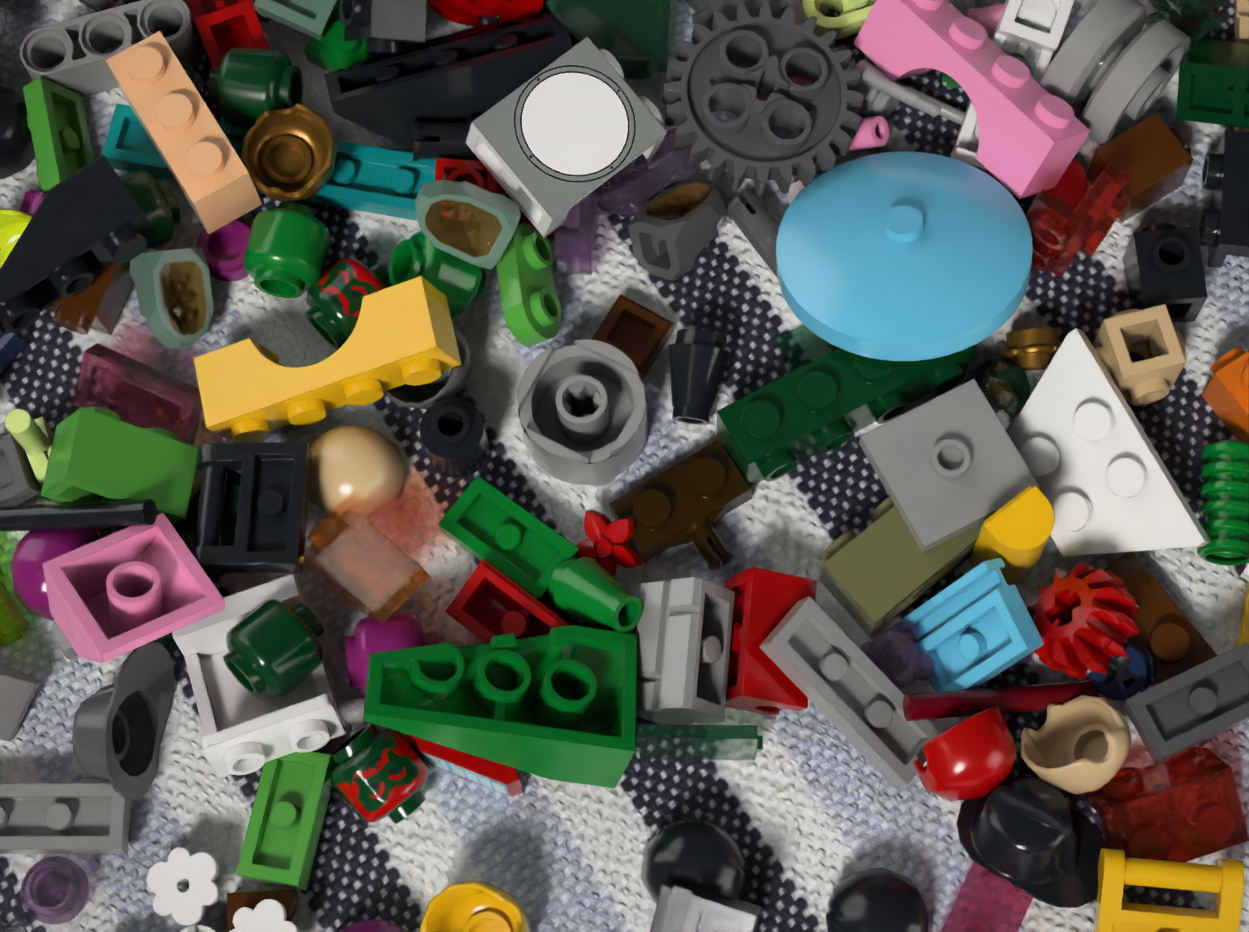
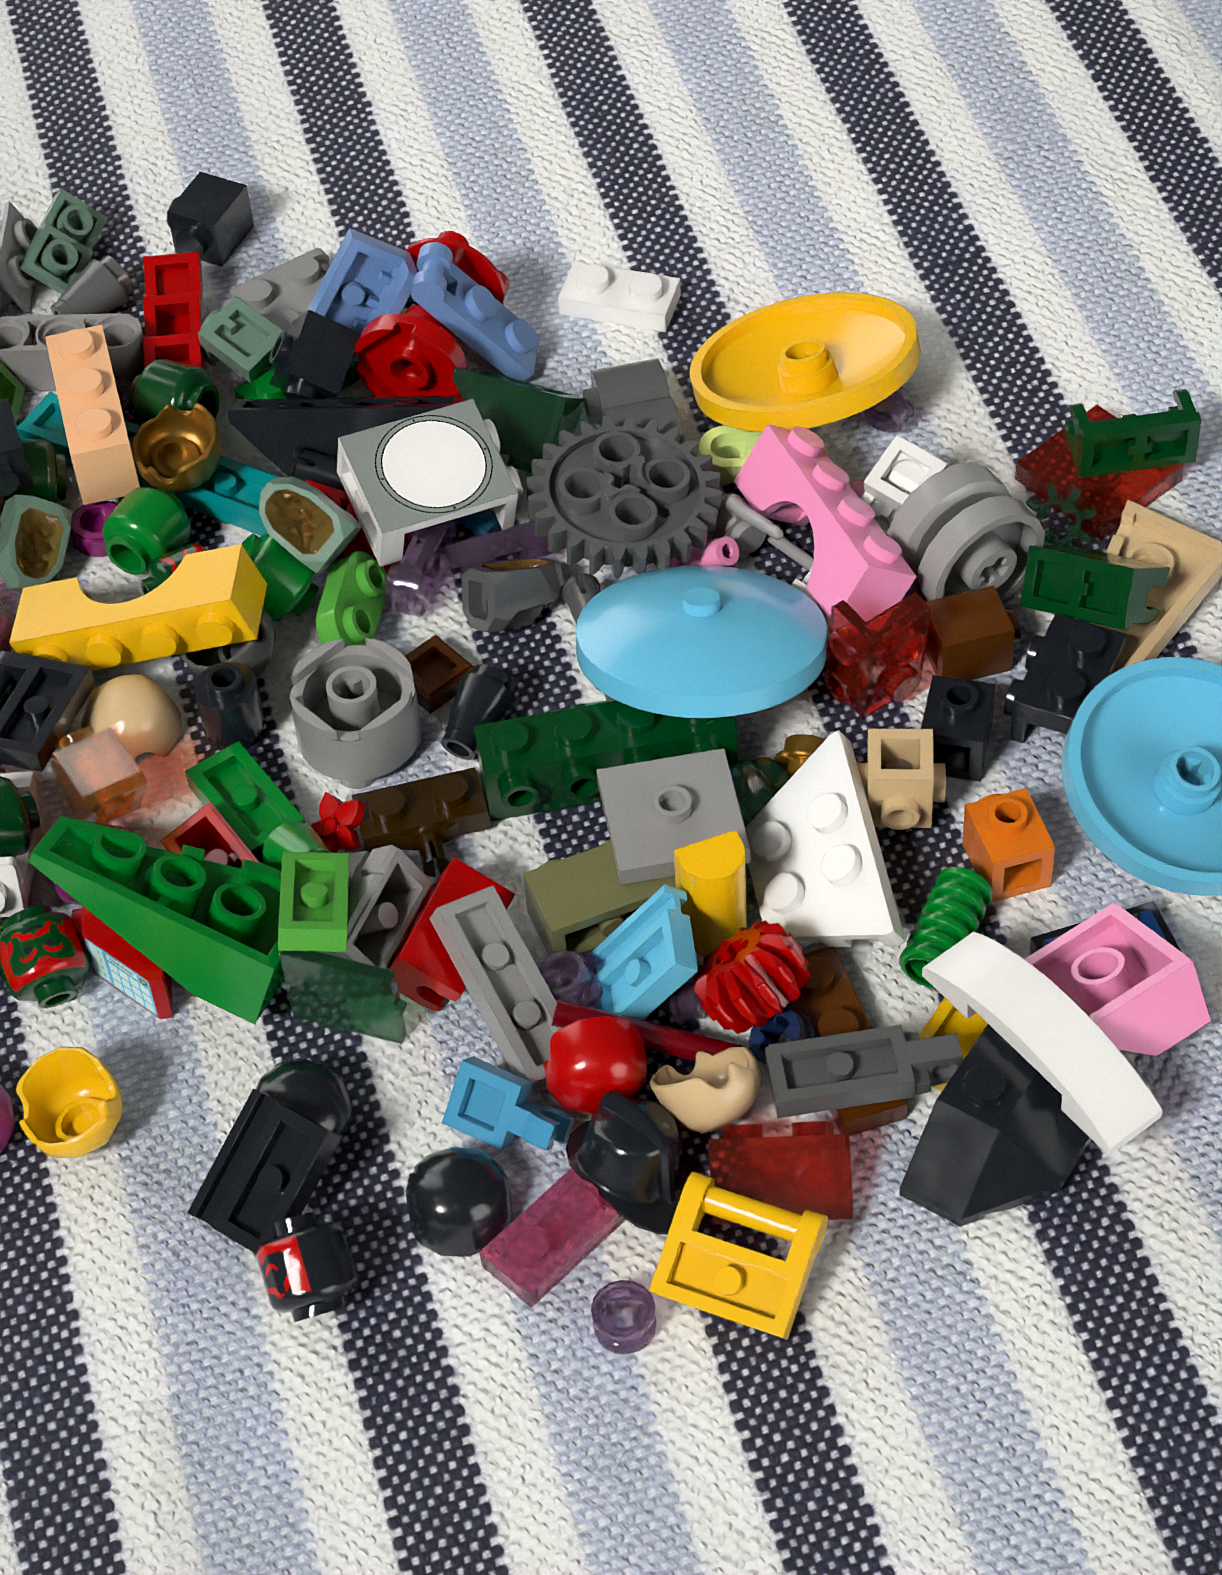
camera: 15 degrees right, 20 degrees down
(648, 668) = (313, 902): none -> bright green plate
(879, 816) = (495, 1108): none -> dark azure plate

